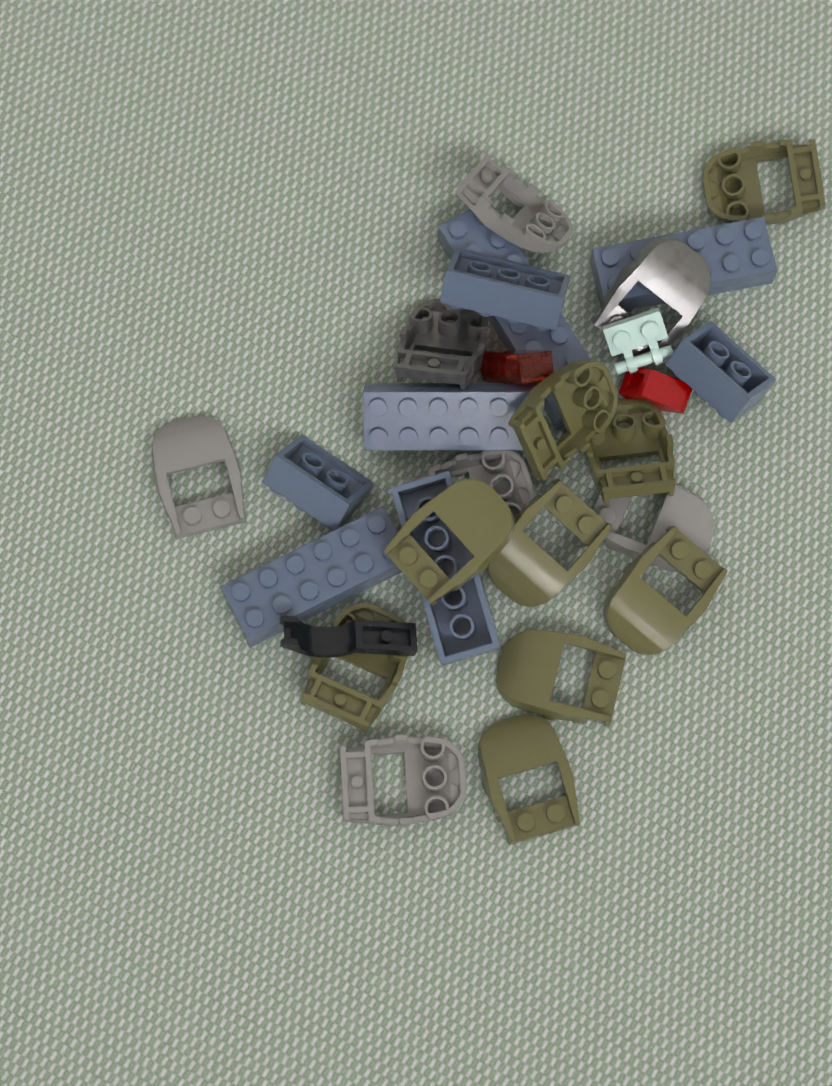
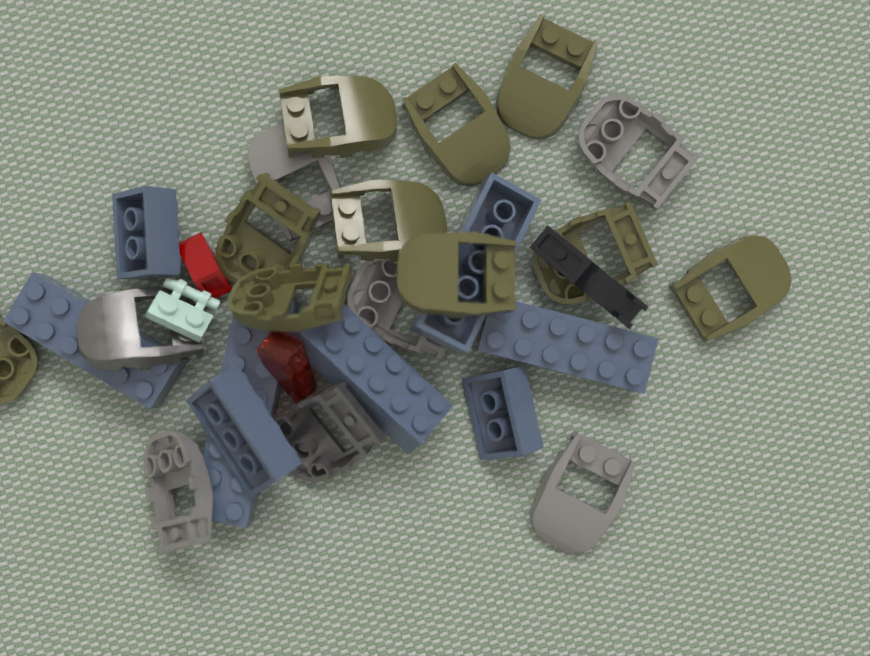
camera: 140 degrees left, 15 degrees up
(211, 776) = (760, 272): none -> olive slope

